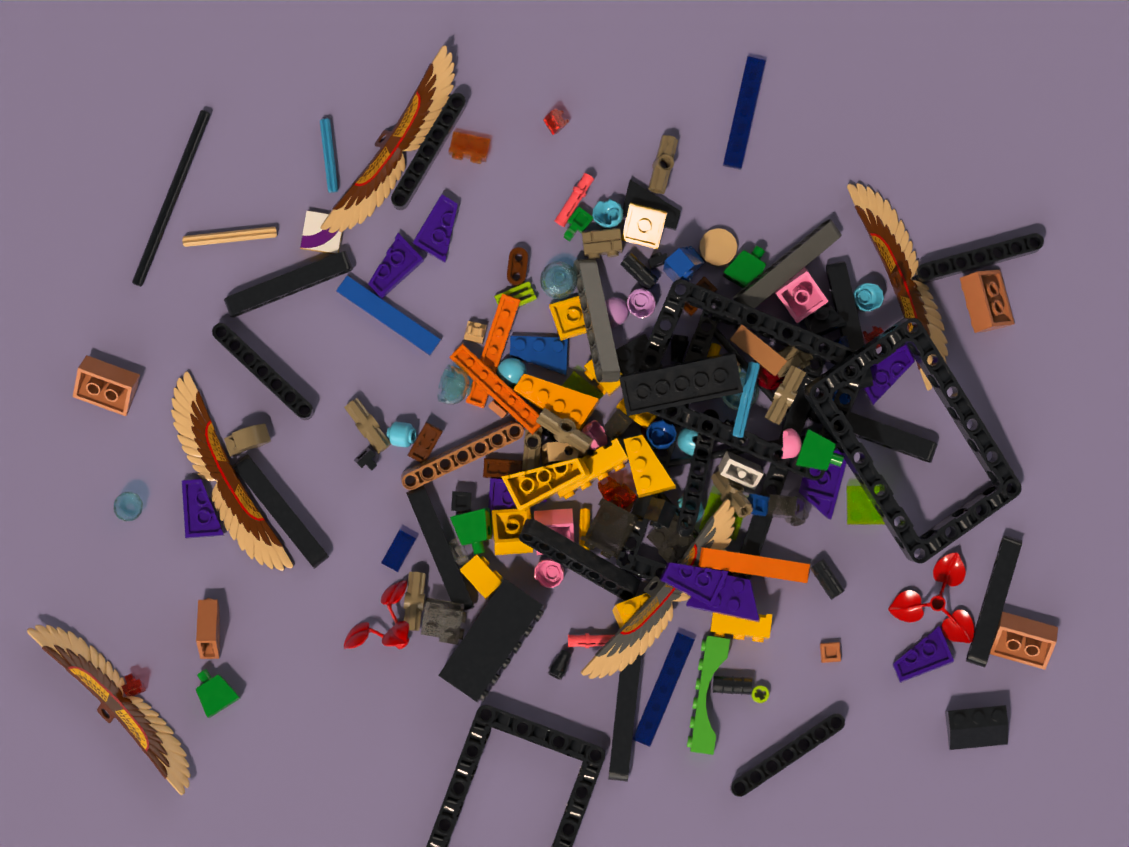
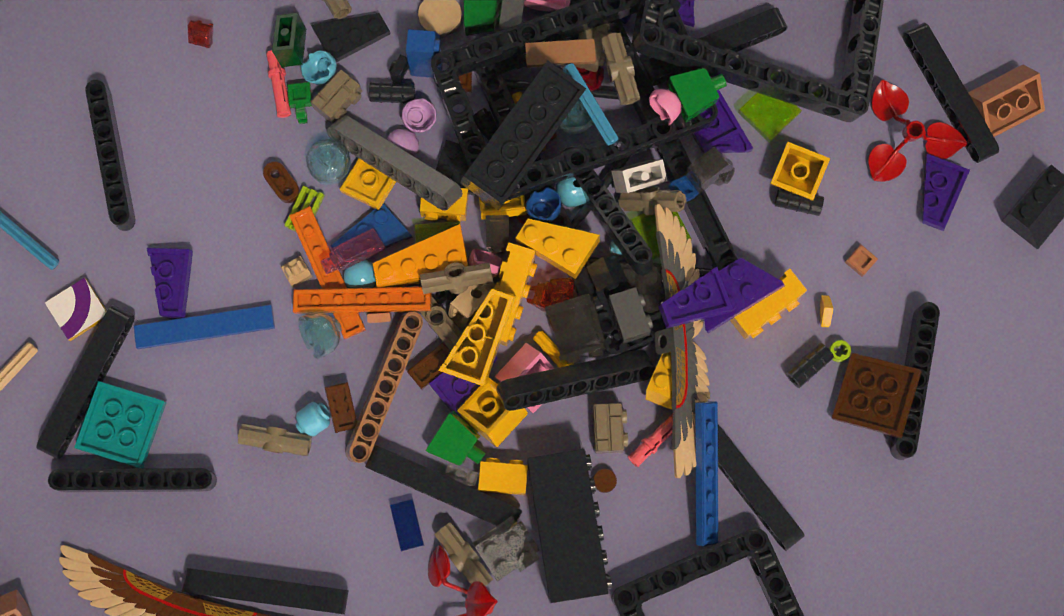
camera: 45 degrees left, 5 degrees down
(246, 439) = (172, 553): dark tan brick -> none
(285, 330) = (120, 425): none -> teal plate
(365, 458) = (300, 470): black tile -> none
(389, 161) = (82, 197): piece -> none
(437, 229) = (179, 214): dark purple wing -> none
(461, 501) = (422, 428): black tile -> none
(469, 147) = (144, 121): clear orange bracket -> none
(520, 354) = (353, 251): none -> clear pink hinge
(540, 636) = (605, 480): none -> reddish brown tile
(549, 573) = (560, 417): bright pink hair -> none
(559, 666) = (646, 490): black cone -> none
(573, 607) = (608, 428): none -> dark tan brick
(604, 688) = (706, 472): none -> blue tile
(605, 179) = (289, 40): none -> dark green brick
(644, 225) = (360, 51): tile -> none
(648, 551) = (629, 315): none -> dark grey brick
(663, 689) = (755, 425): clear blue tile -> none
(703, 736) = (828, 432): bright green arch -> none
(753, 740) = (876, 395): none -> reddish brown plate
(754, 565) = (729, 244): orange tile -> none
(776, 661) = (826, 311): none -> yellow tile
(843, 561) = (800, 171): none -> yellow slope

